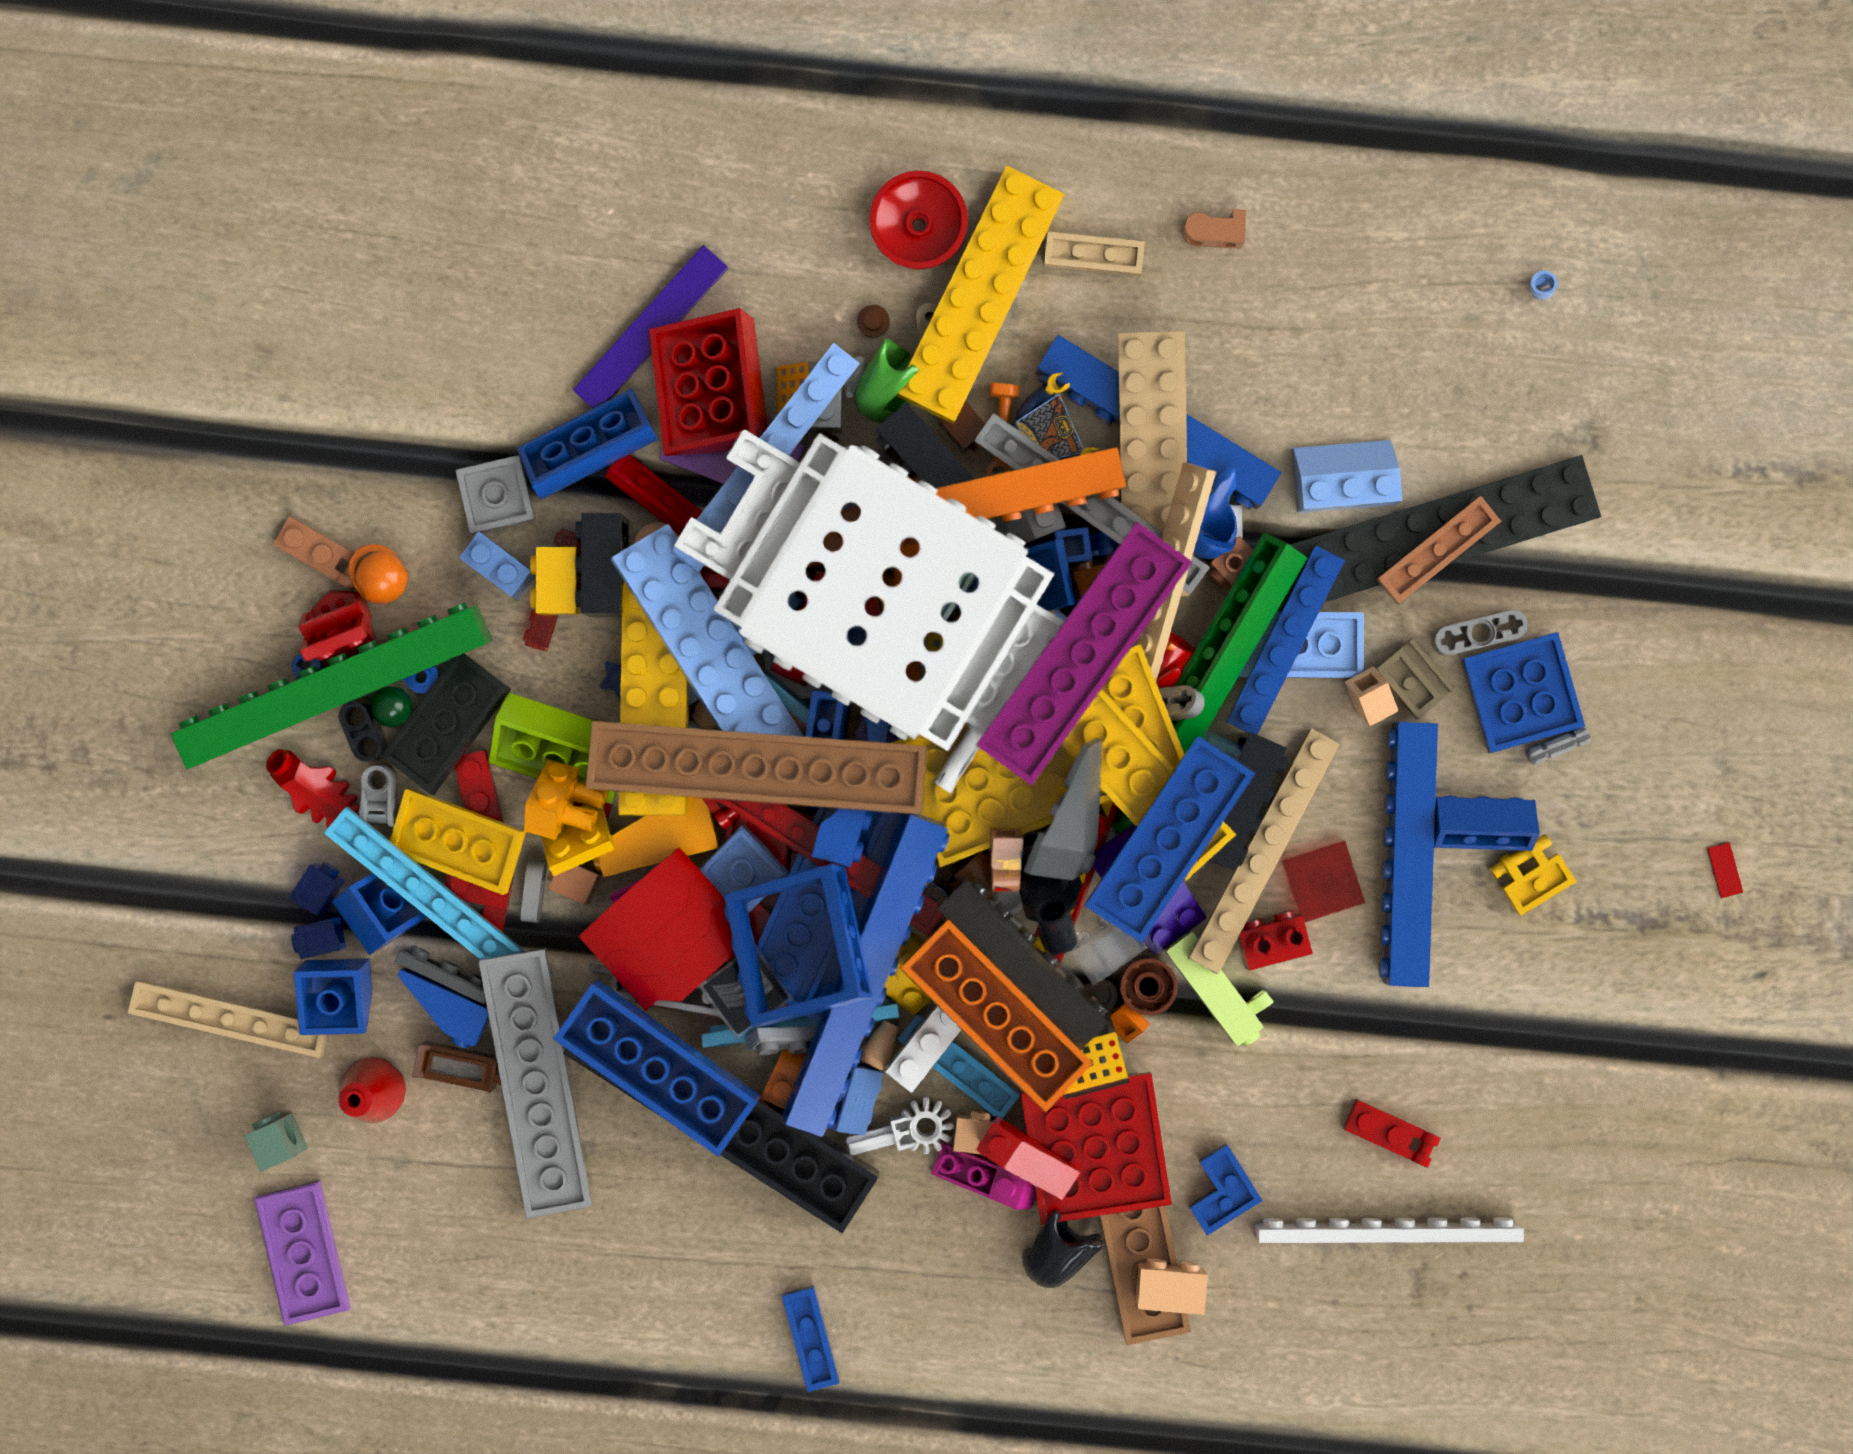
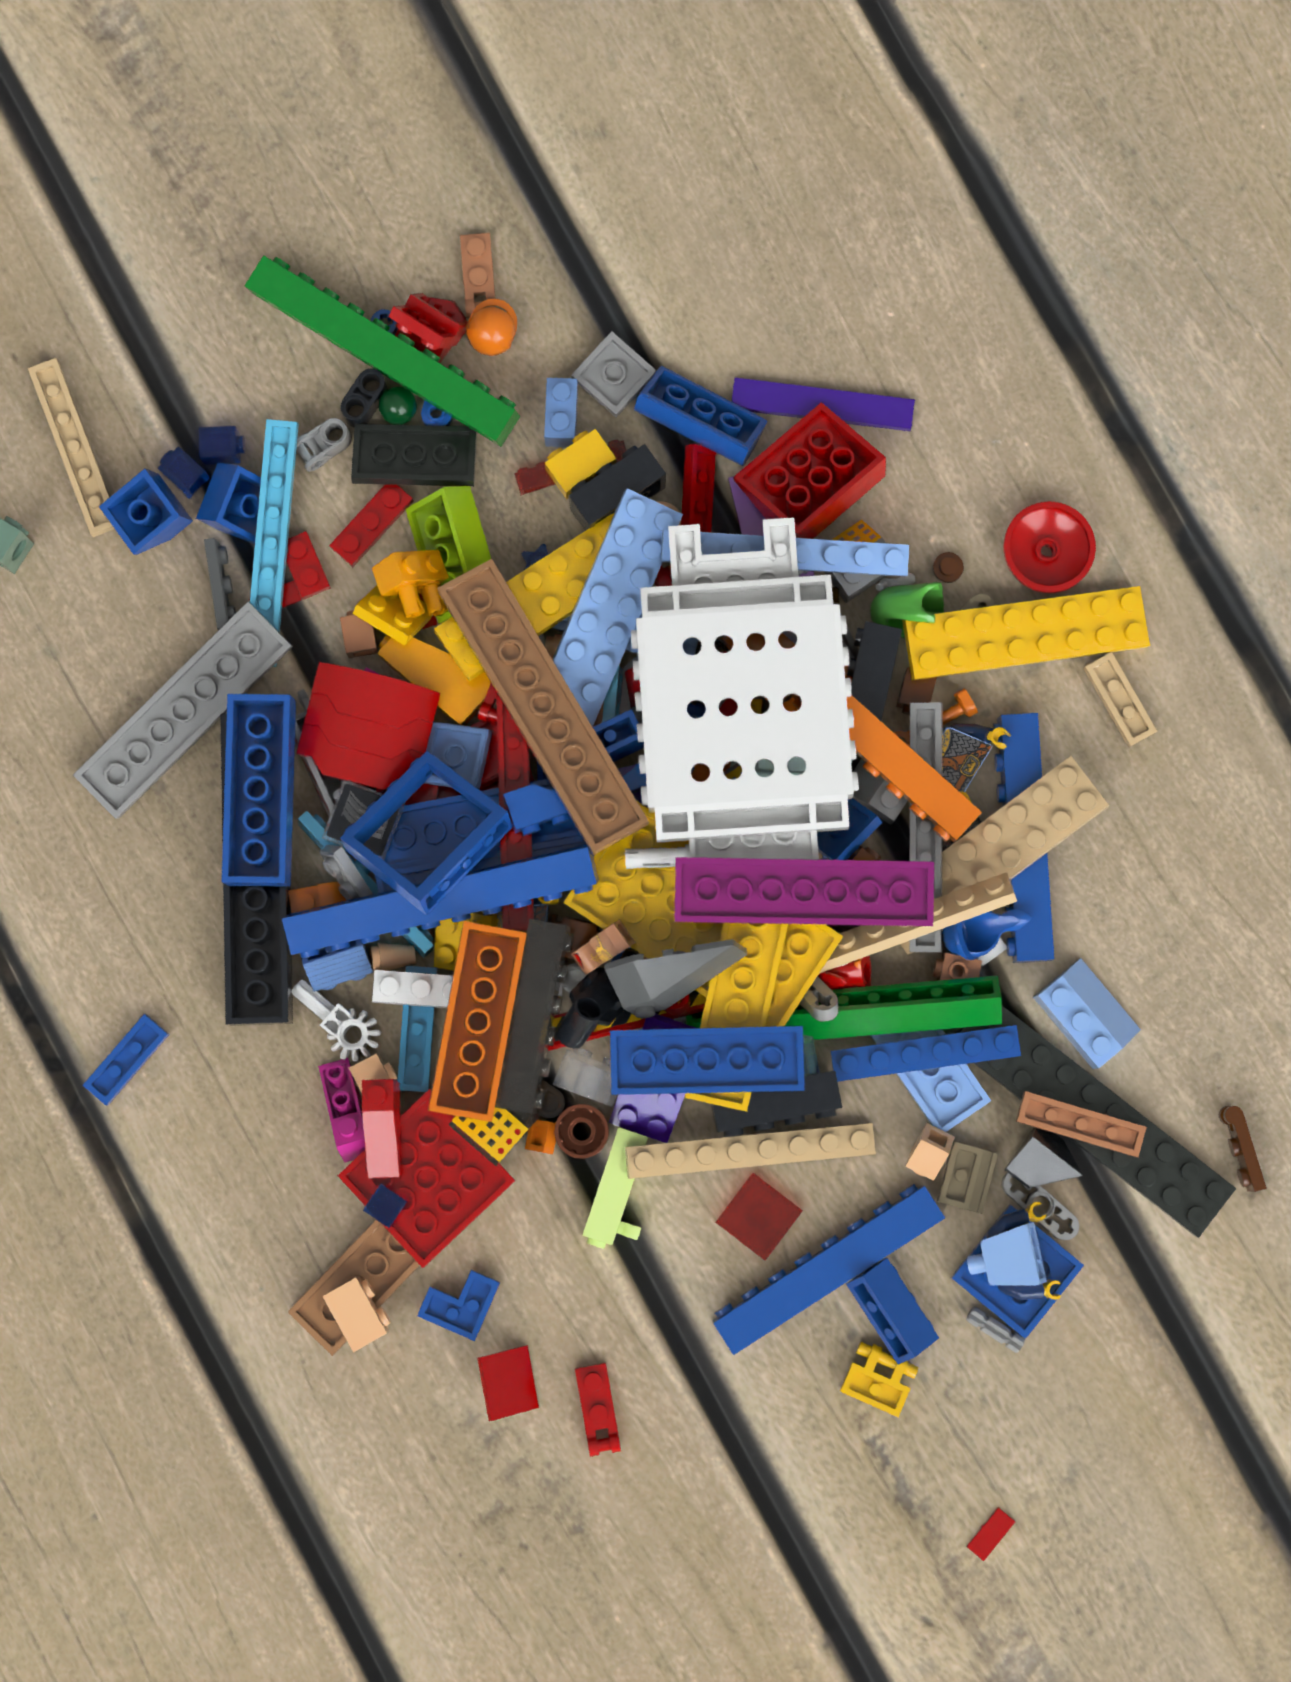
camera: 60 degrees right, 5 degrees down
(310, 786) = (294, 387): red plant -> none
(371, 1090) = (91, 591): red cone -> none
(452, 1011) = (195, 607): blue slope -> none
(457, 840) = (329, 524): yellow plate -> none
(457, 1066) = (154, 642): reddish brown window -> none
(533, 891) = (329, 609): light grey beam -> none
(1058, 1252) = (324, 1205): black hair -> none
(1082, 546) = (887, 842): blue brick -> none
(1097, 1201) = (385, 1205): none -> clear blue plate
(1215, 231) = (1204, 781): nougat leg -> none
(1274, 940) = (685, 1208): red brick -> none
(1318, 1196) = (508, 1383): none -> red piece
(1373, 1230) = (526, 1470): white plate -> none
(1446, 604) = (1042, 1160): none -> slope
(1512, 688) = (1014, 1257): none -> light blue torso
(1552, 424) = (1242, 1147): none -> reddish brown plate

